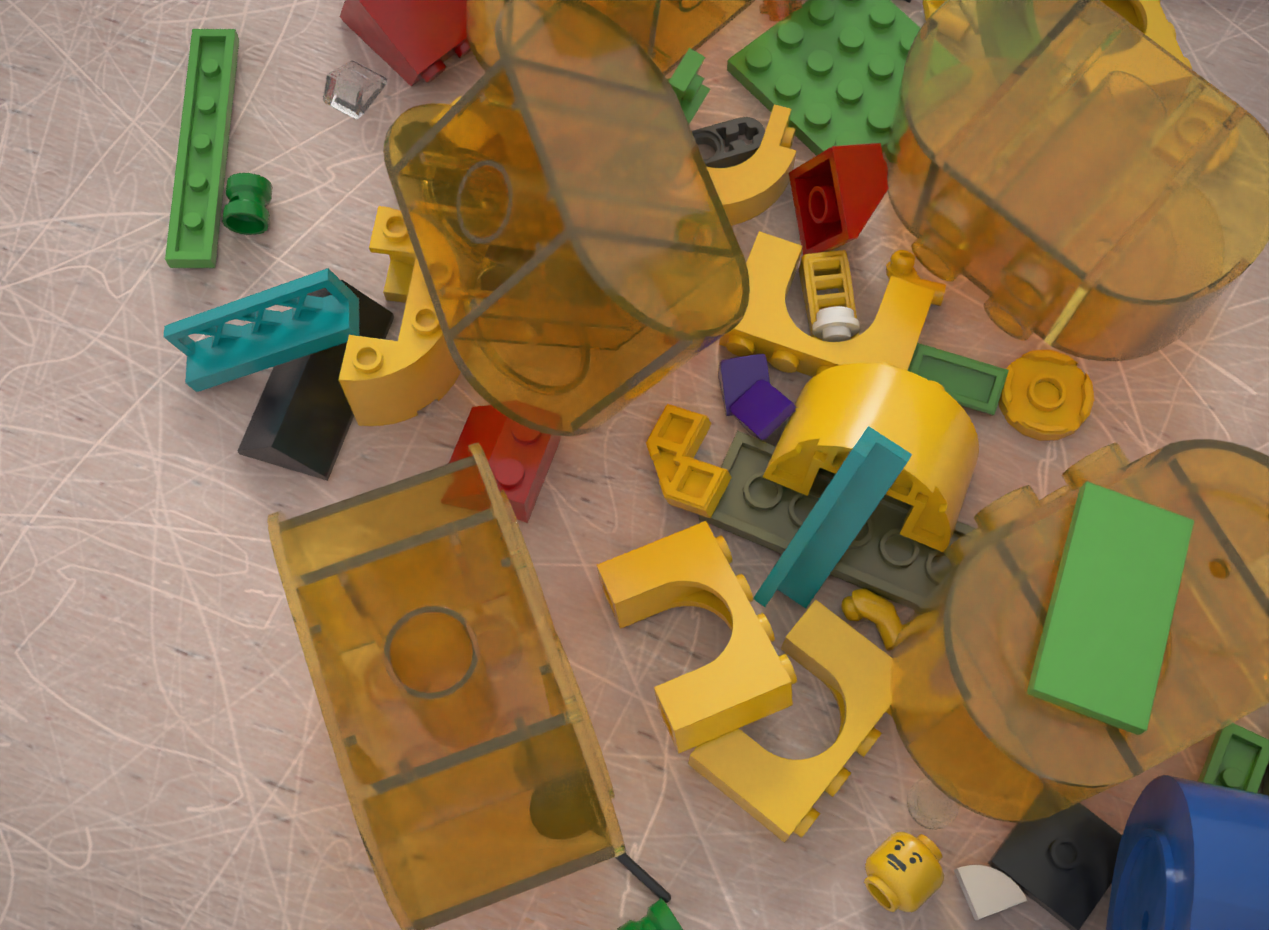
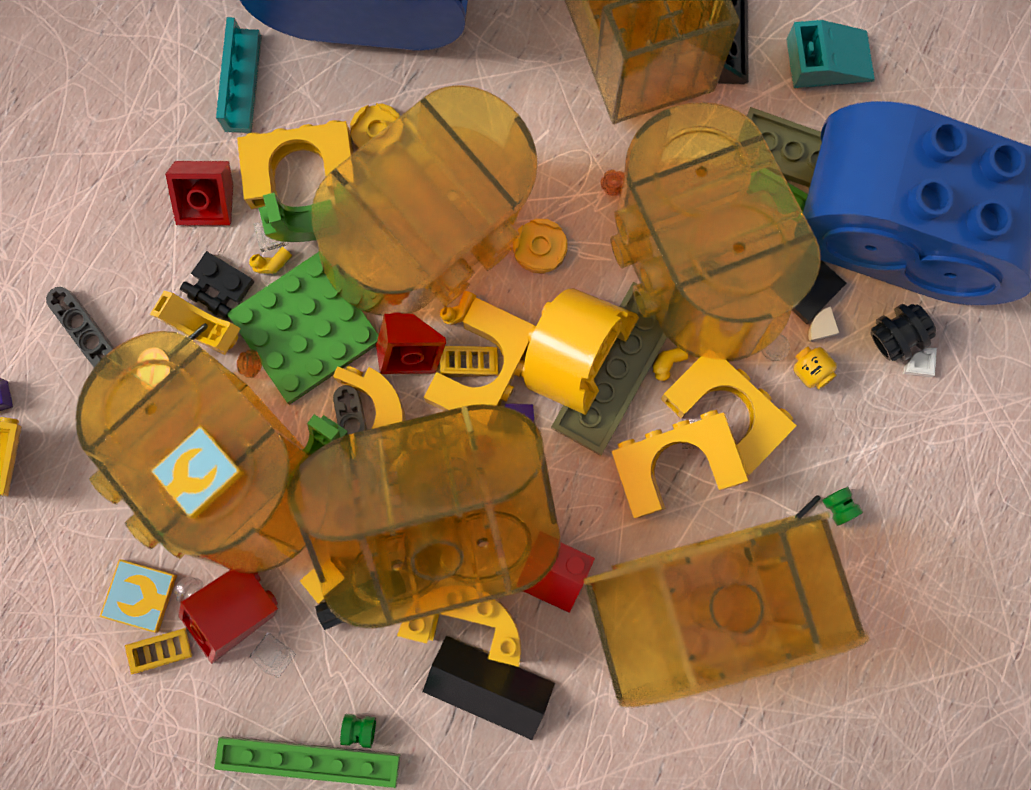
camera: 80 degrees left, 10 degrees up
(271, 336) = (464, 716): teal fence -> none
(685, 480) = (579, 462): yellow tile -> none
(762, 409) = (540, 408): dark purple slope -> none
(835, 324) = (491, 359): white plate -> none
(835, 519) = (626, 376): teal fence -> none
(965, 379) = (528, 293): bright green tile -> none
(1111, 608) = (727, 231): bright green tile -> none

